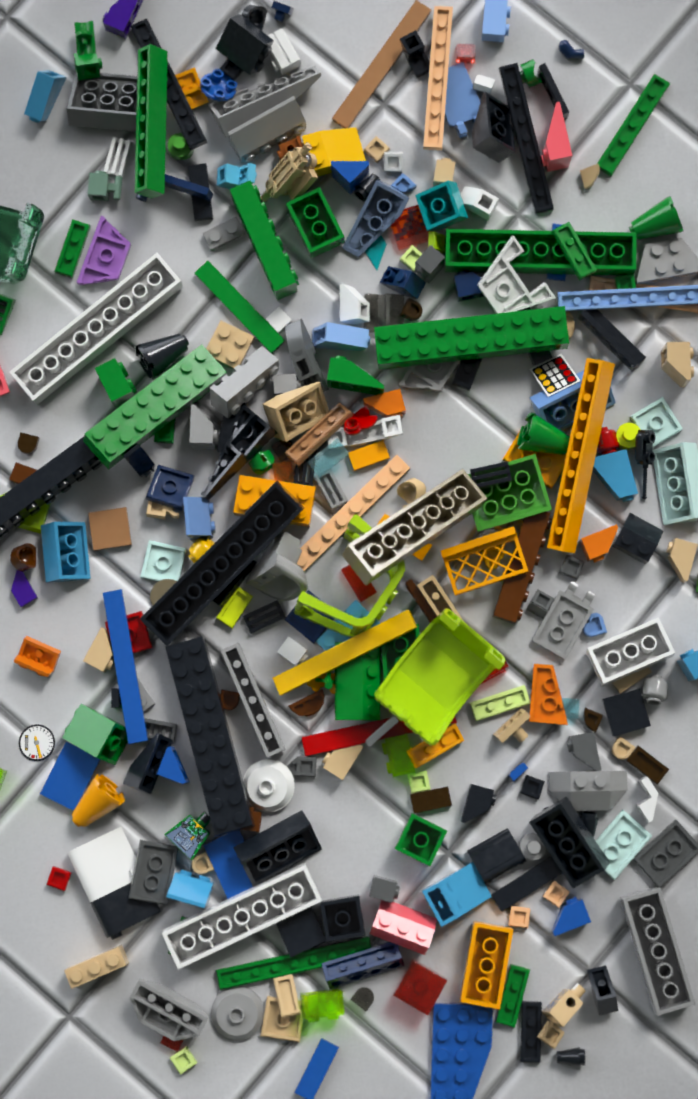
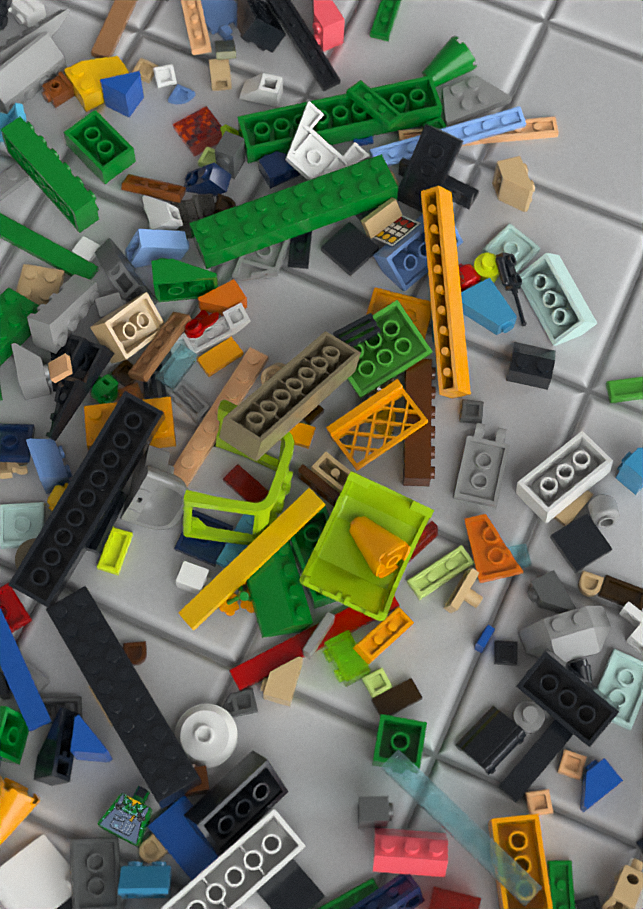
camera: 25 degrees left, 15 degrees down
(227, 436) = (60, 368): none -> light nougat tile
(253, 700) = (162, 642): light grey brick -> none
(264, 608) = (165, 539): black tile -> none
(292, 174) = (63, 103): tan piece -> none
(309, 705) = (228, 633): reddish brown tile -> none
(342, 918) = (336, 861): black brick -> none
(353, 276) = (153, 188): none -> dark orange tile
(363, 189) = (143, 106): black cone -> none
(375, 251) = (167, 158): teal sticker -> none
(378, 213) = (162, 123): sand blue wedge -> none
(441, 206) = (226, 99): teal brick -> none
(447, 923) = (461, 828): none -> clear light blue plate
(450, 674) = (378, 546): none -> light orange cone
(455, 150) = (225, 49): none -> olive tile
(456, 894) = (467, 788): dark azure slope -> none
(477, 802) = (450, 684): black slope -> none
(511, 383) = (349, 248): none -> black tile
(540, 604) = (450, 458): dark grey slope -> none
(542, 437) = (399, 285): green cone -> none
(547, 363) = (381, 218): none -> tan tile
(590, 175) = (367, 42): tan tile -> none
(592, 719) = (546, 560): dark brown tile -> none
(594, 626) = (516, 464): medium blue tile -> none
(598, 543) = (491, 379): orange slope -> none
(604, 329) = (428, 165): none -> black tile
(681, 557) = (583, 370): tan slope -> none

